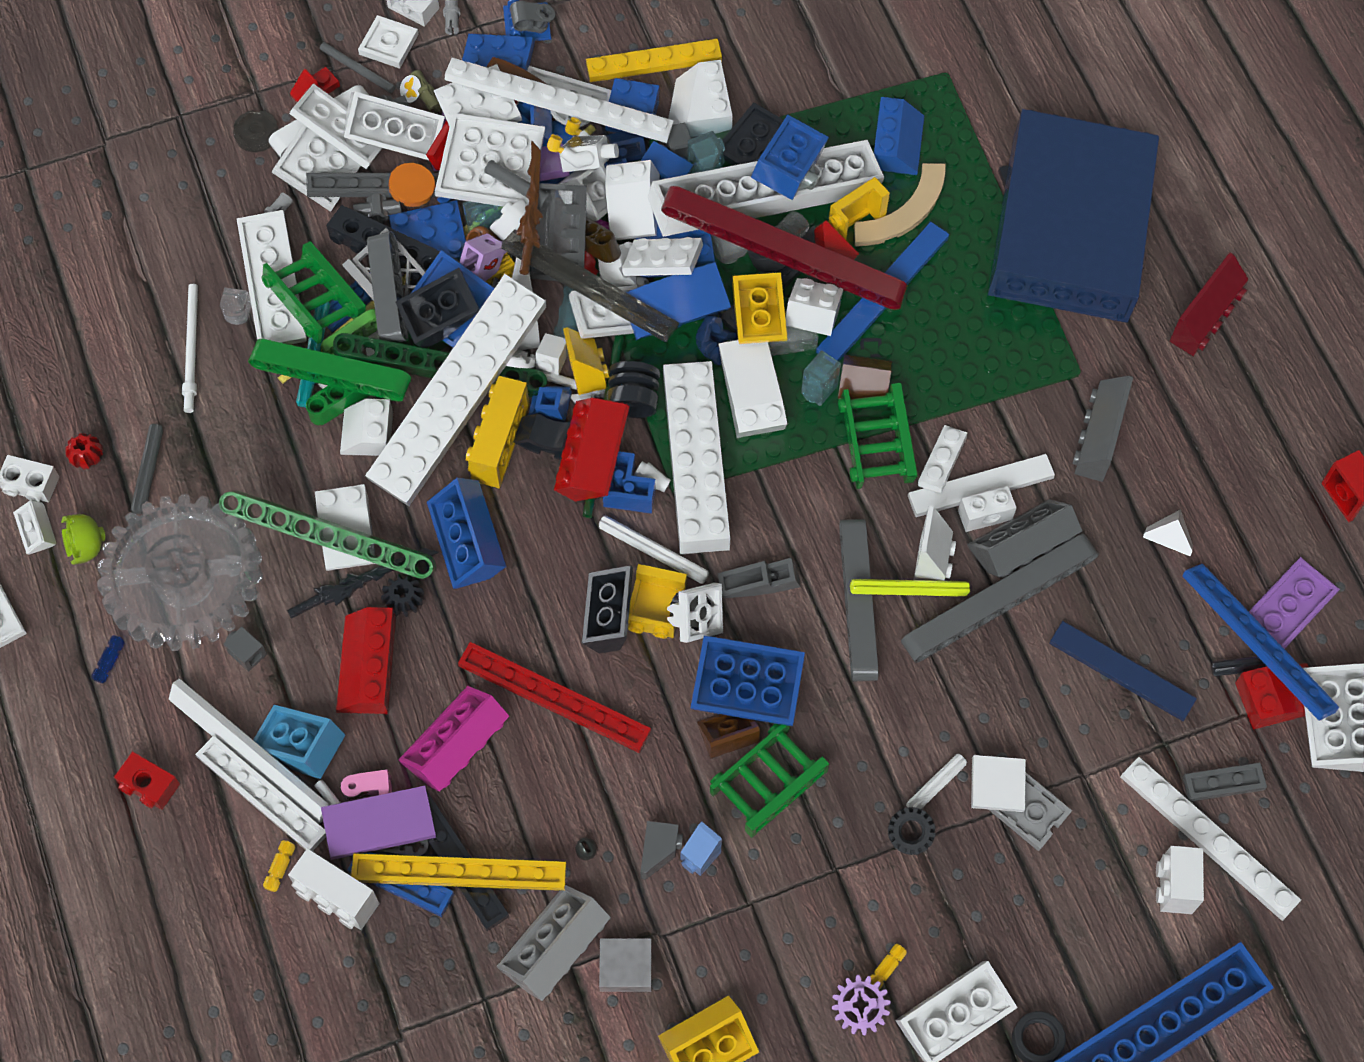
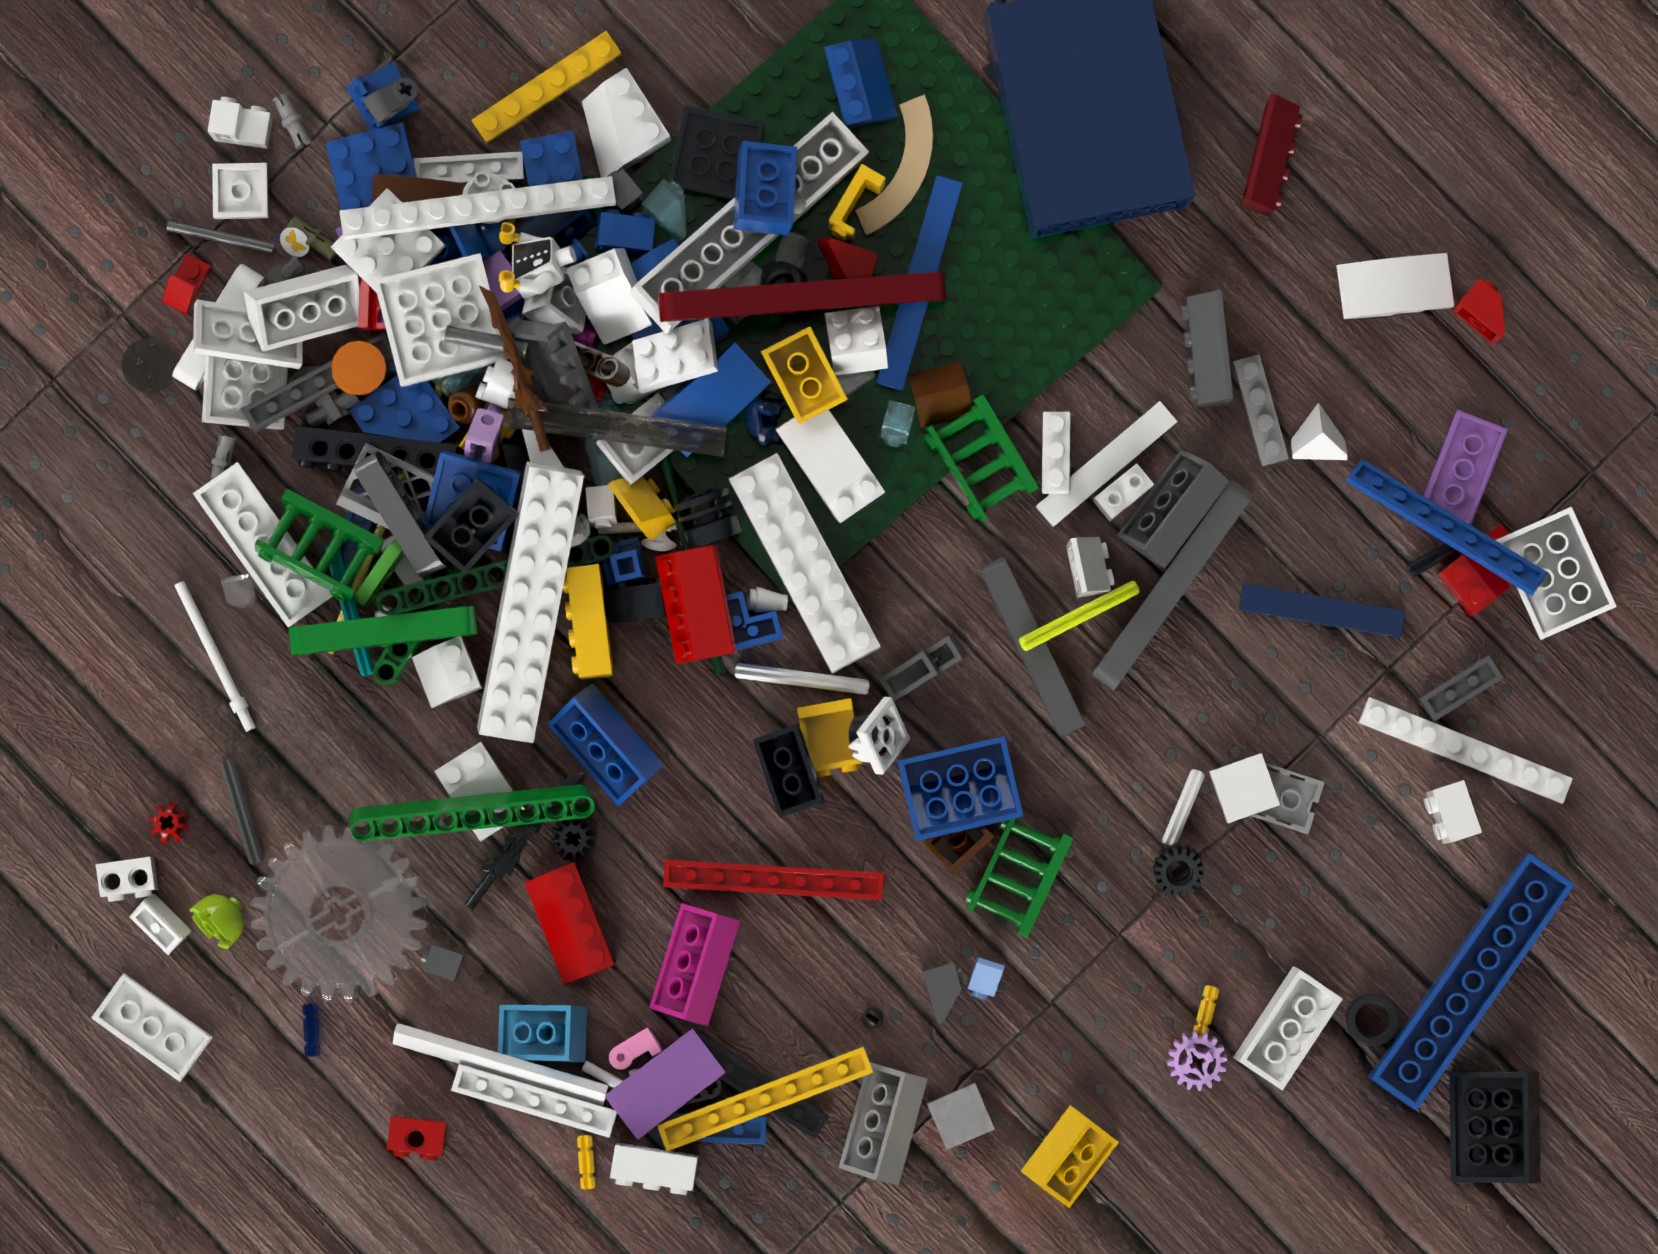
camera: 25 degrees left, 20 degrees up
(1128, 495) = (1260, 410): none -> light grey plate
(1280, 442) = (1395, 286): none -> white slope

